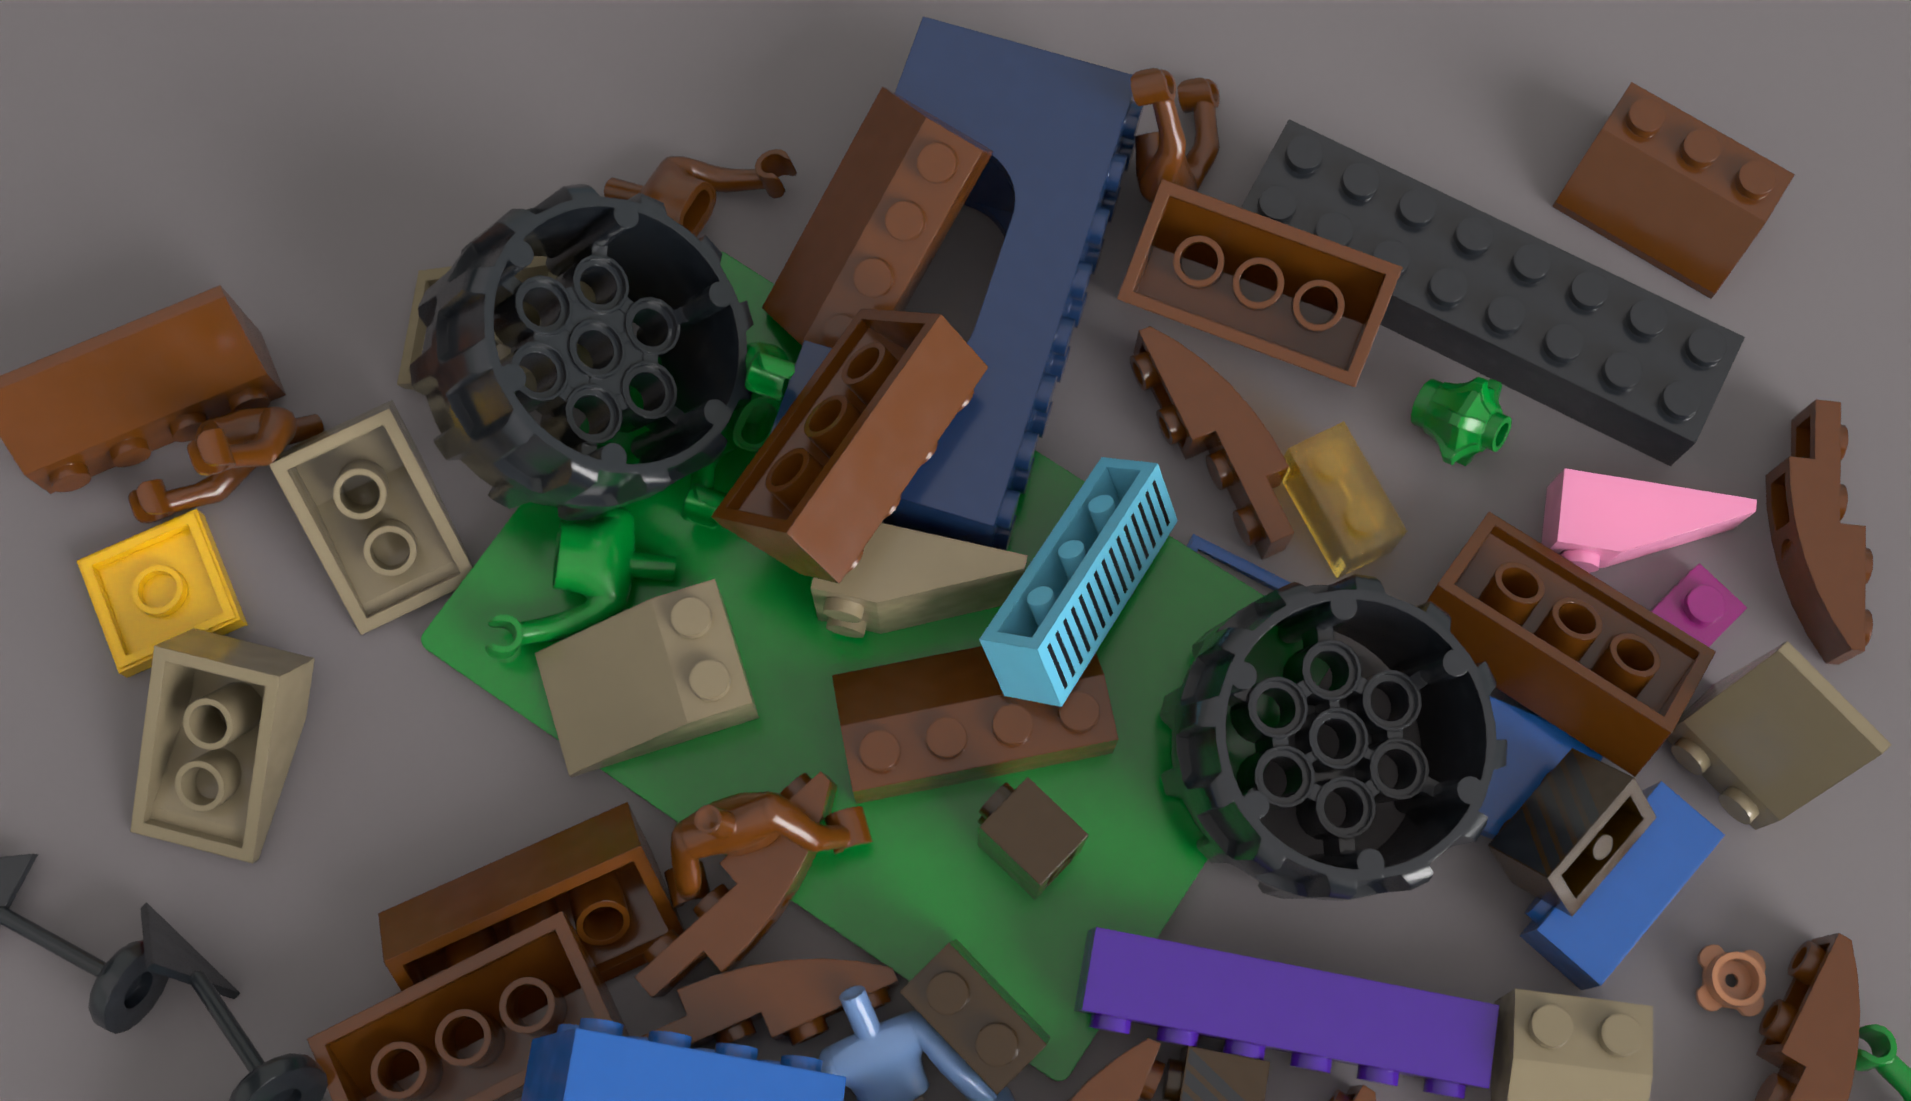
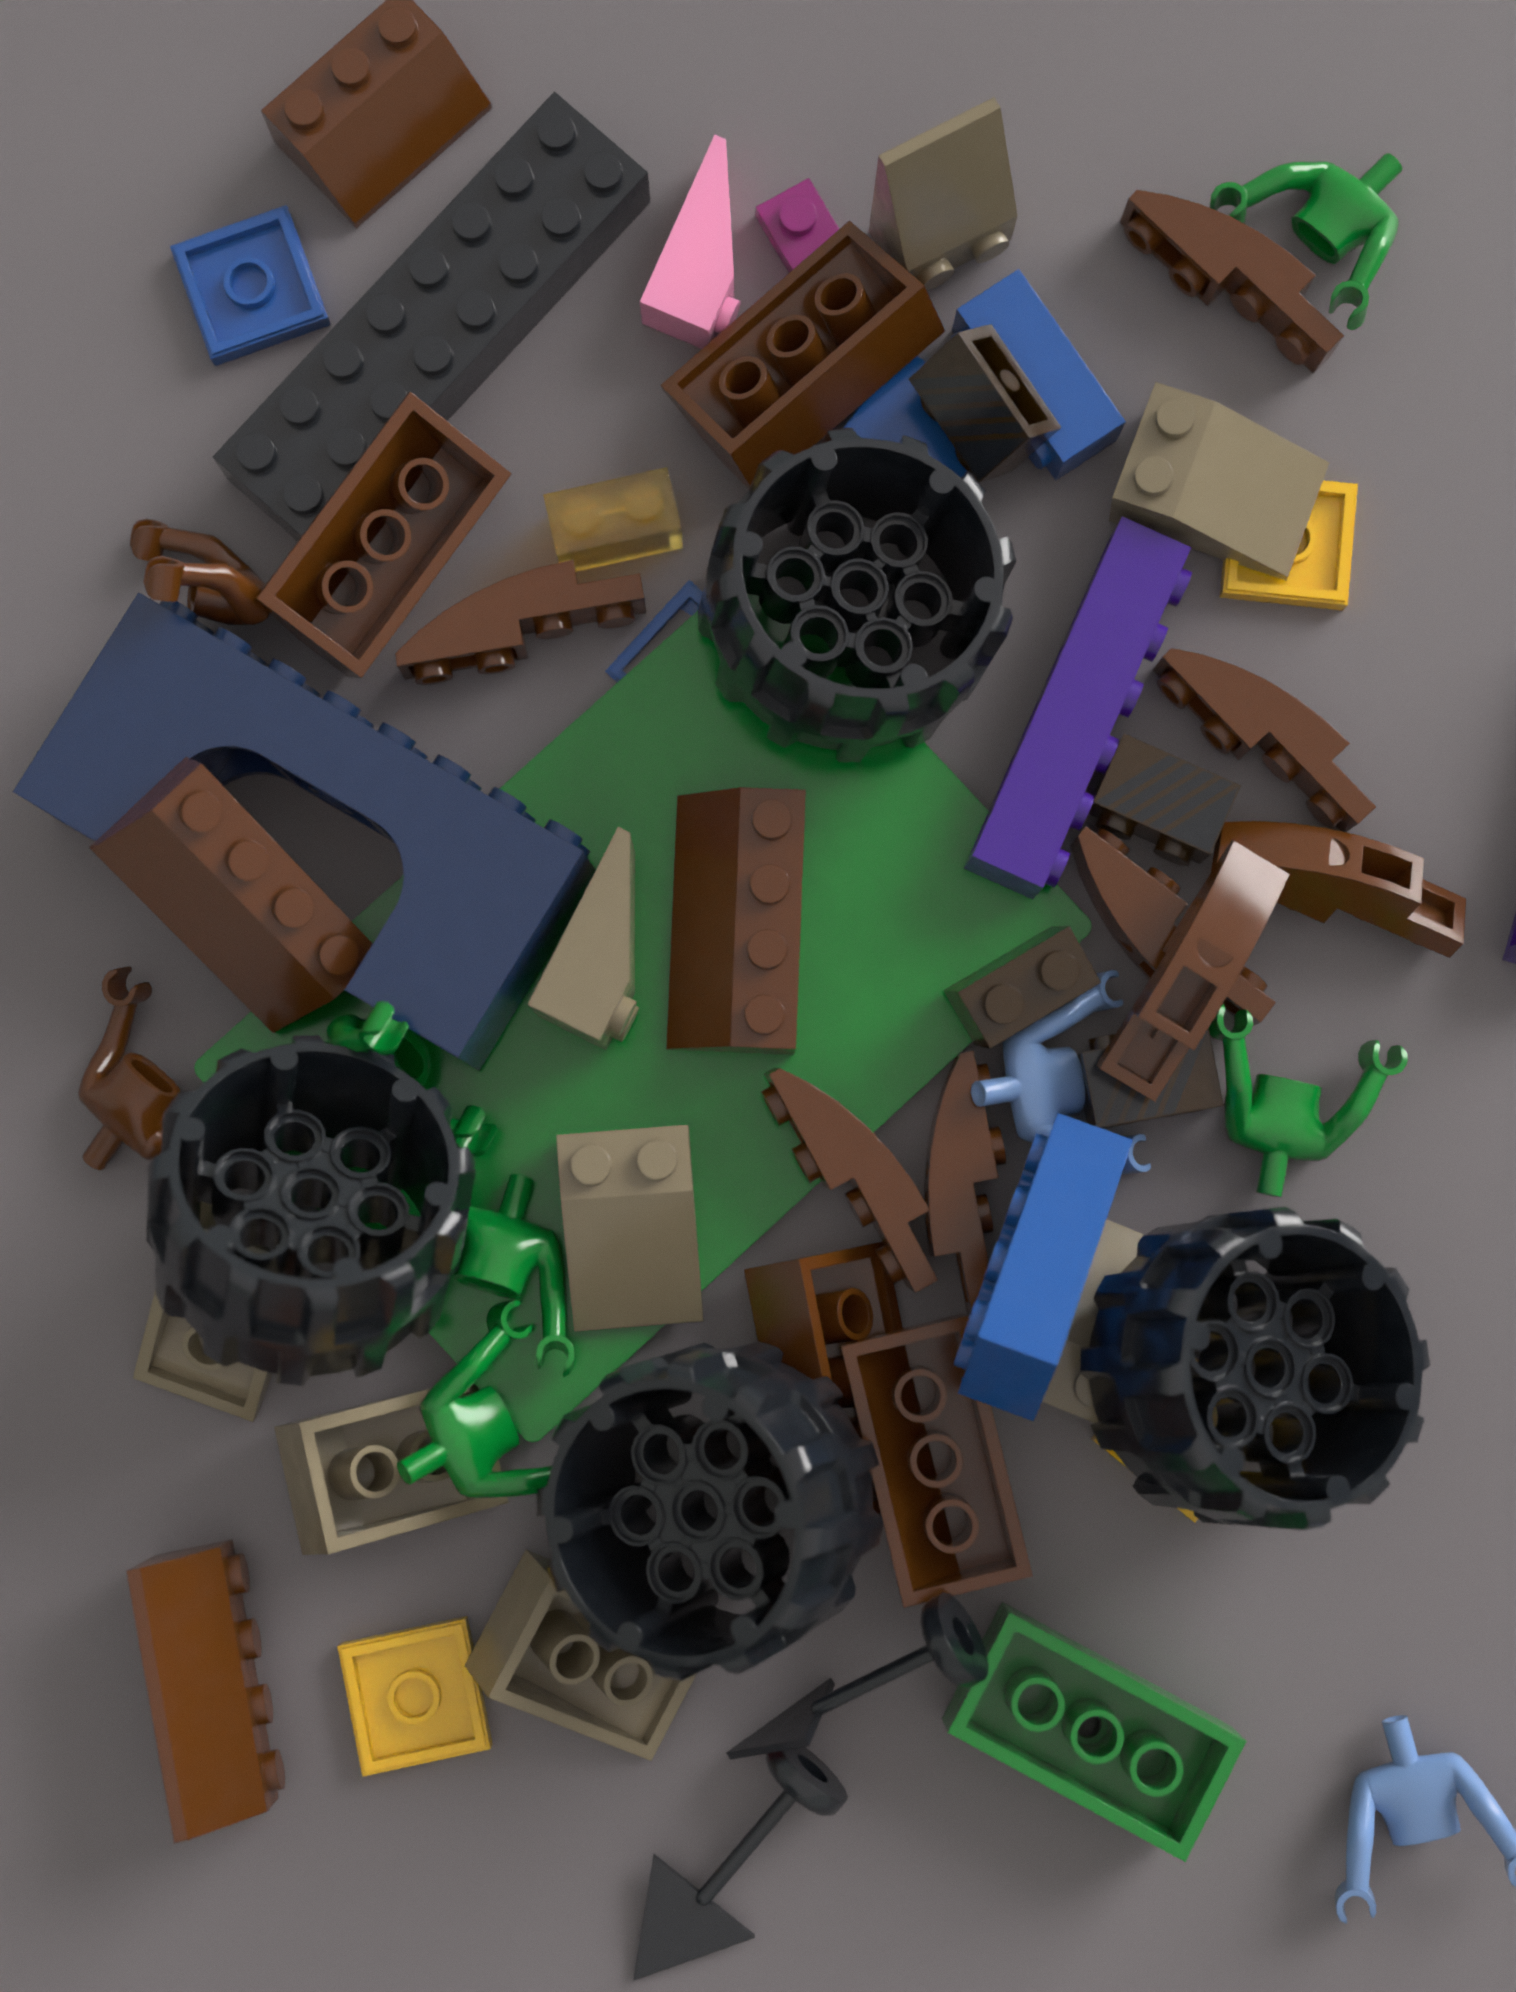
camera: 80 degrees left, 10 degrees up
(226, 453) = (299, 1592): reddish brown piece -> none
(352, 825) = (630, 1570): none -> black wheel
(417, 581) = (476, 1428): none -> green piece
(745, 825) = (806, 1151): reddish brown piece -> none
(852, 441) = (469, 963): reddish brown slope -> none
(1028, 835) = (876, 895): dark brown brick -> none
(1079, 581) = (646, 784): medium azure brick -> none
(1462, 417) = (560, 382): green rock -> none
(1466, 125) = (250, 285): none -> blue tile
(1750, 977) = (1144, 289): nougat plate -> none
(1816, 555) = (776, 98): reddish brown slope -> none

